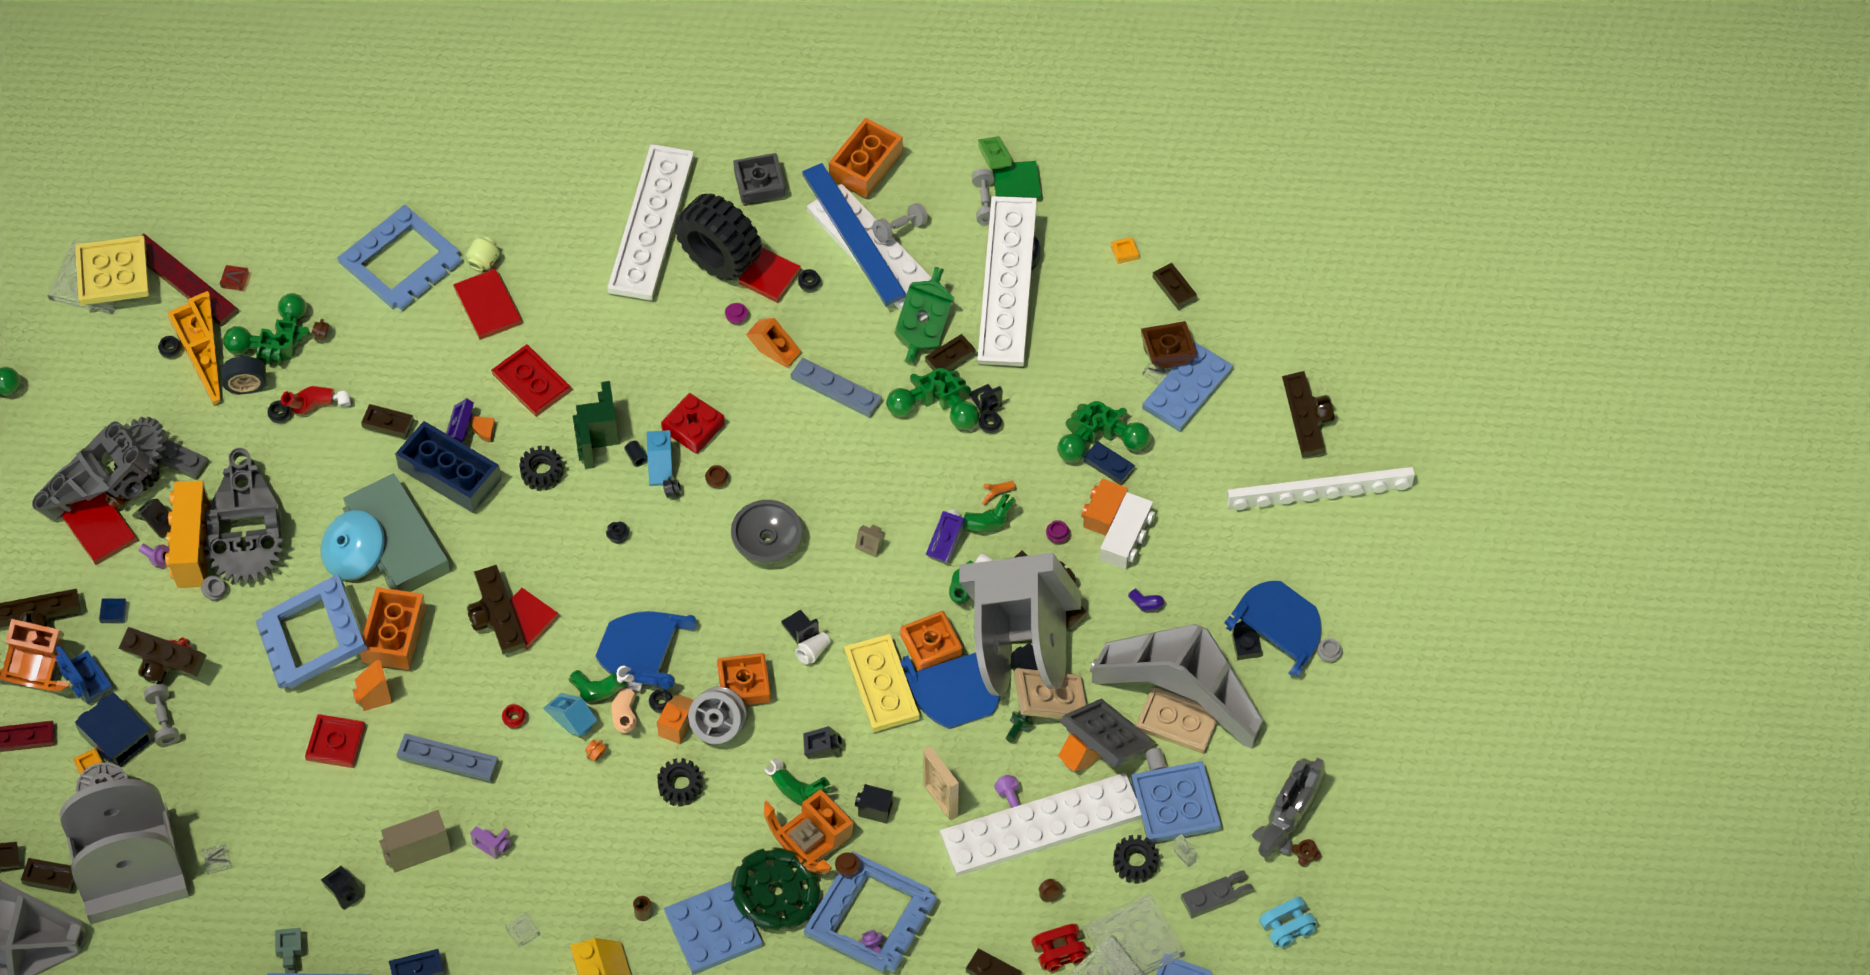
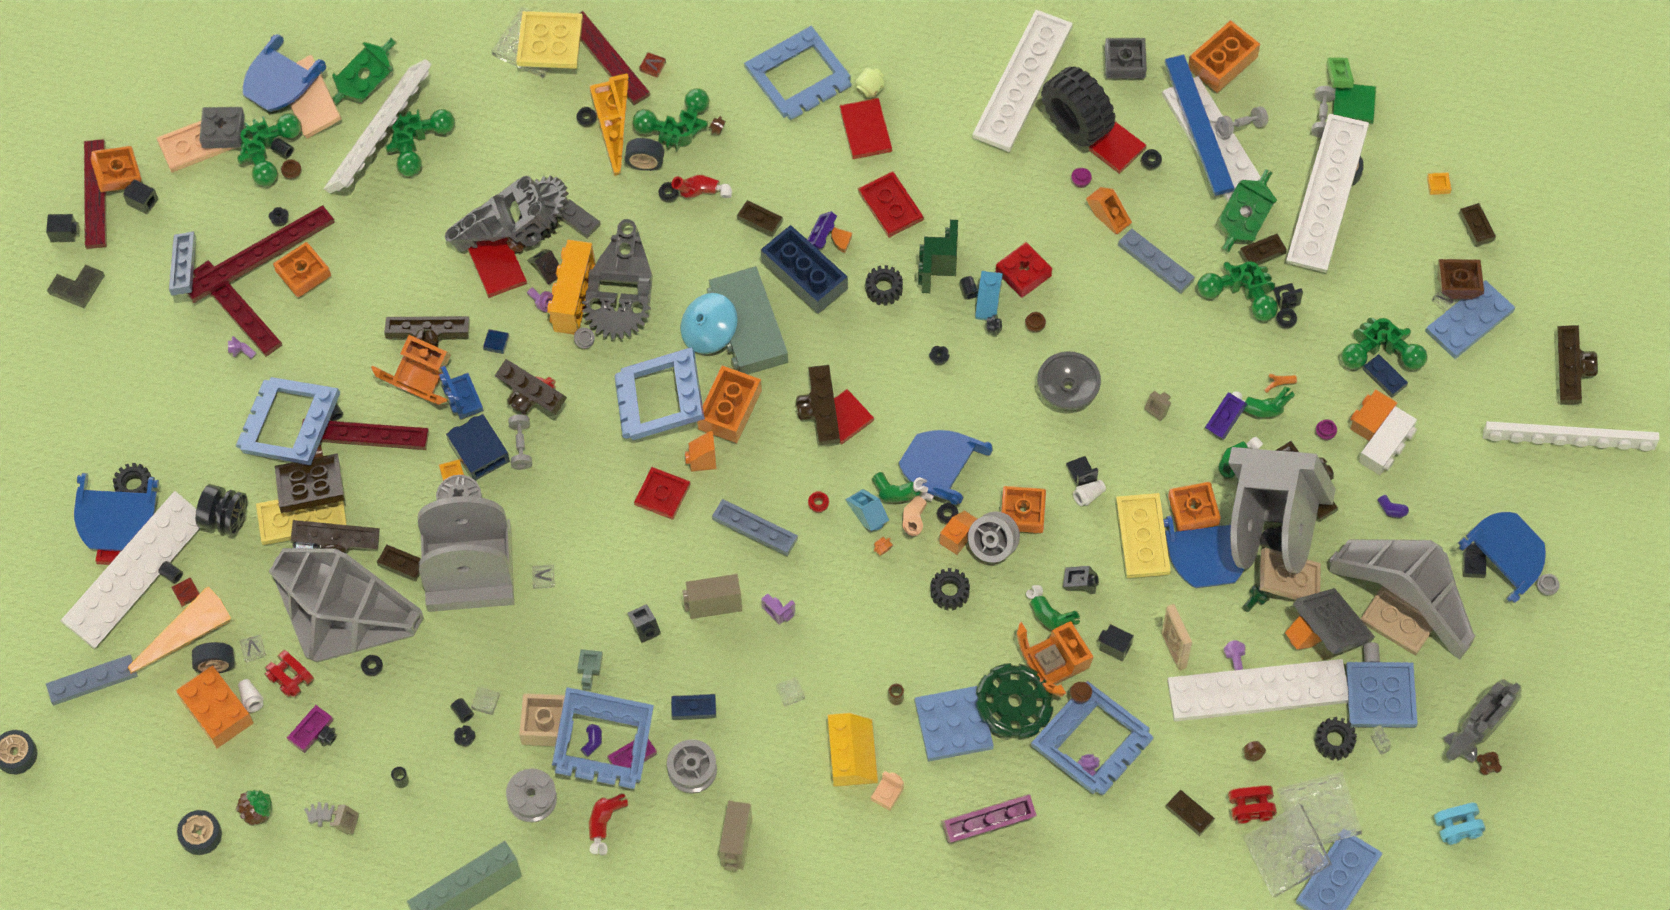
camera: 15 degrees right, 5 degrees up
(1215, 894) = (1400, 784): dark grey hinge -> none

